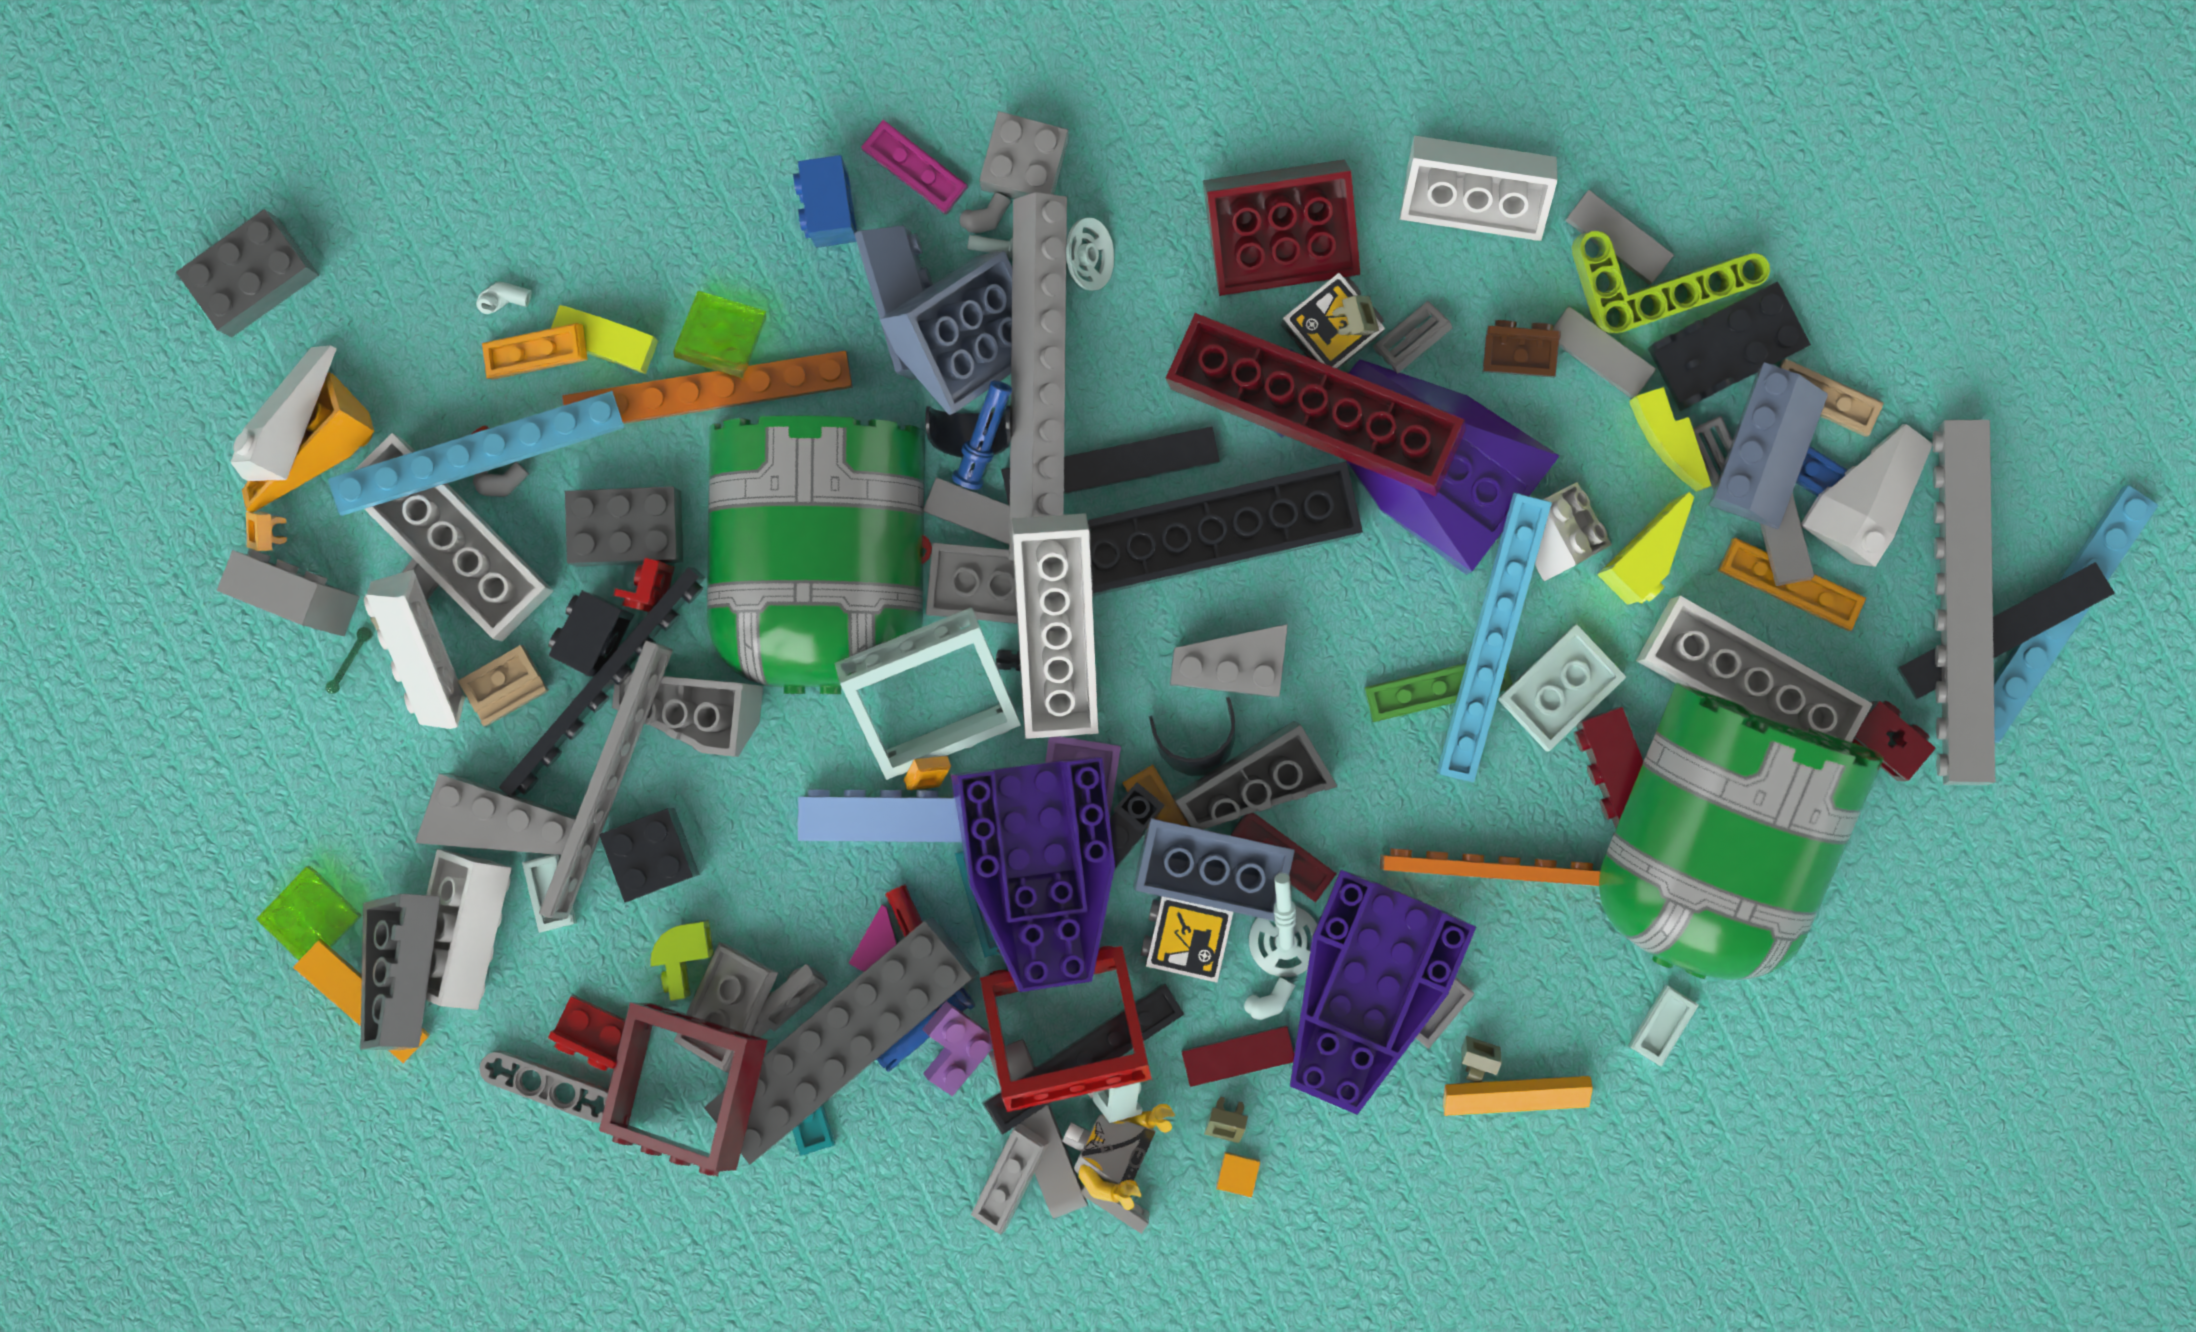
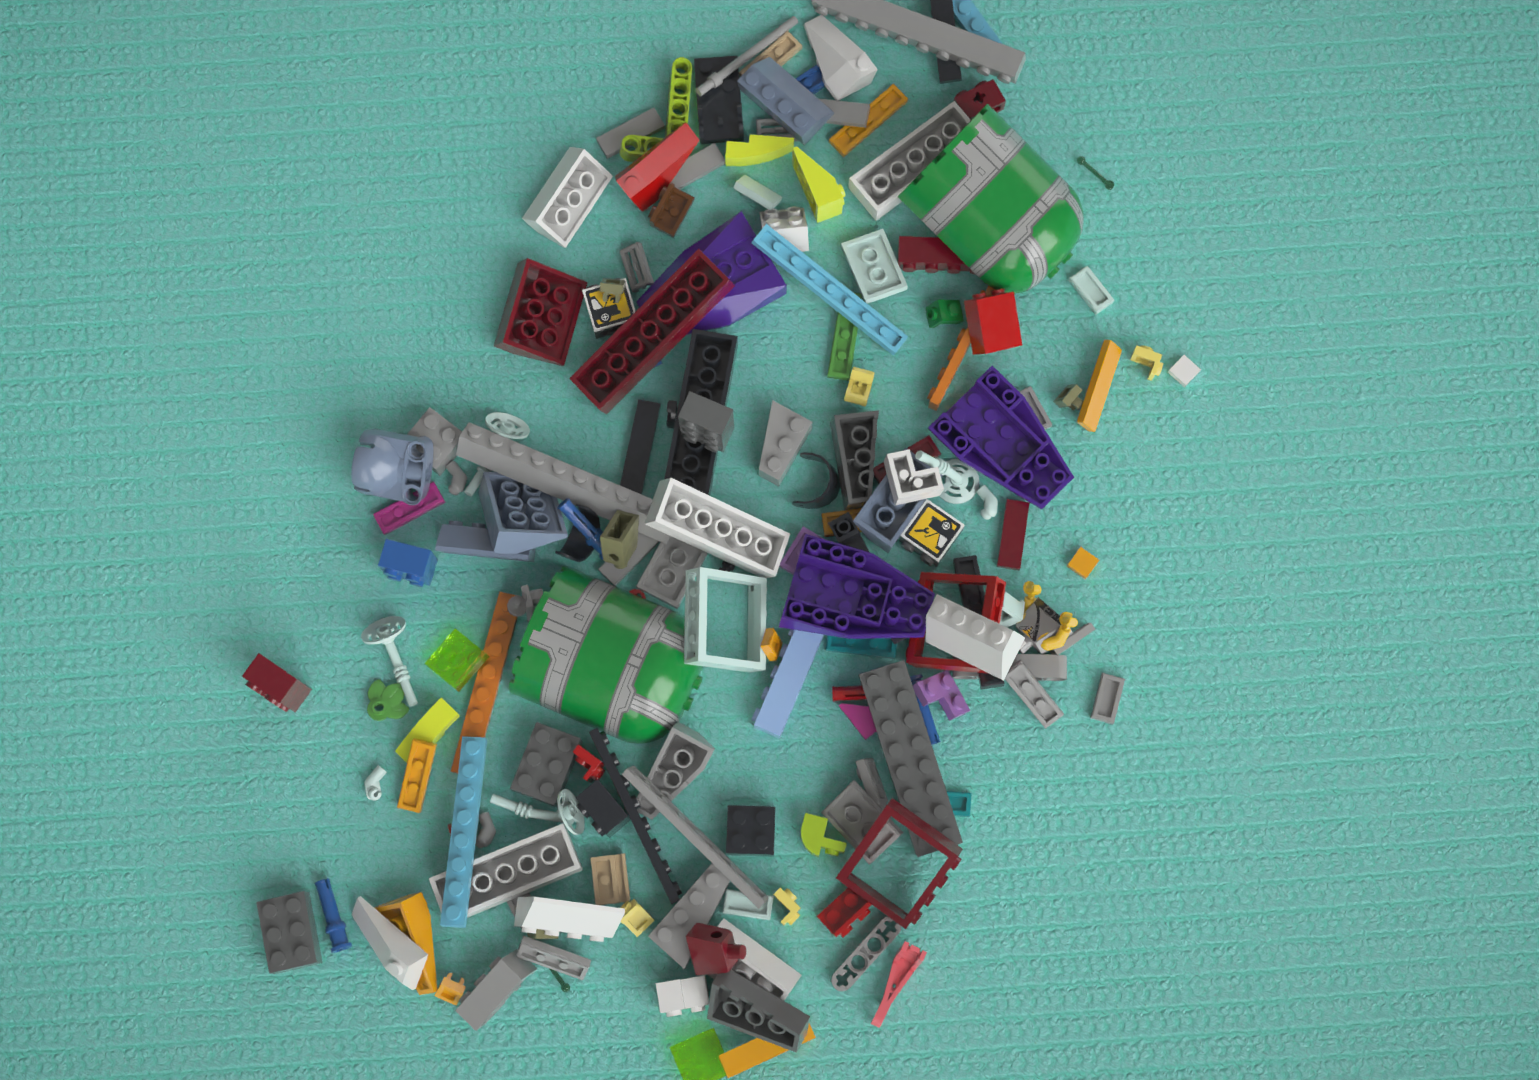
camera: 70 degrees left, 10 degrees down
(283, 332) = (335, 926): none -> blue pin
(360, 654) = (553, 958): none -> light grey tile
(383, 852) = (682, 994): none -> white brick
(451, 874) = (713, 949): none -> dark red torso
(464, 743) = (636, 917): none -> light yellow bracket
(538, 1145) = (903, 966): none -> coral hinge
(562, 581) = (565, 814): none -> light aqua dish
(573, 94) = (275, 684): none -> dark red brick
(574, 946) = (787, 899): none -> light yellow bracket
(629, 261) = (389, 698): none -> bright green plate
(709, 222) = (384, 632): none -> light aqua dish
(838, 398) = (526, 604): none -> light grey hips
(955, 116) = (392, 465): none -> sand blue piece
(972, 489) = (620, 539): none -> olive torso
(1042, 1066) = (972, 637): none -> white slope
(1052, 1287) = (1107, 698): none -> light grey tile
(1200, 543) = (706, 422): none -> dark grey brick
(1213, 483) = (672, 408): none -> black tile
(1226, 1124) = (1050, 556): olive tile -> none
(1235, 875) = (909, 484): none -> white brick
(1365, 741) = (859, 386): none -> light yellow bracket
(1533, 821) = (944, 312): none -> green bracket
(1544, 901) = (993, 321): none -> red brick
(1575, 301) = (657, 167): none -> wedge
(1592, 1147) = (1146, 356): none -> light yellow bracket
(1594, 1212) = (1184, 370): none -> white tile
(1604, 466) = (757, 192): none -> light aqua tile
(1756, 329) = (715, 79): none -> light grey bar
(1842, 987) = (1108, 184): none -> clear green hinge

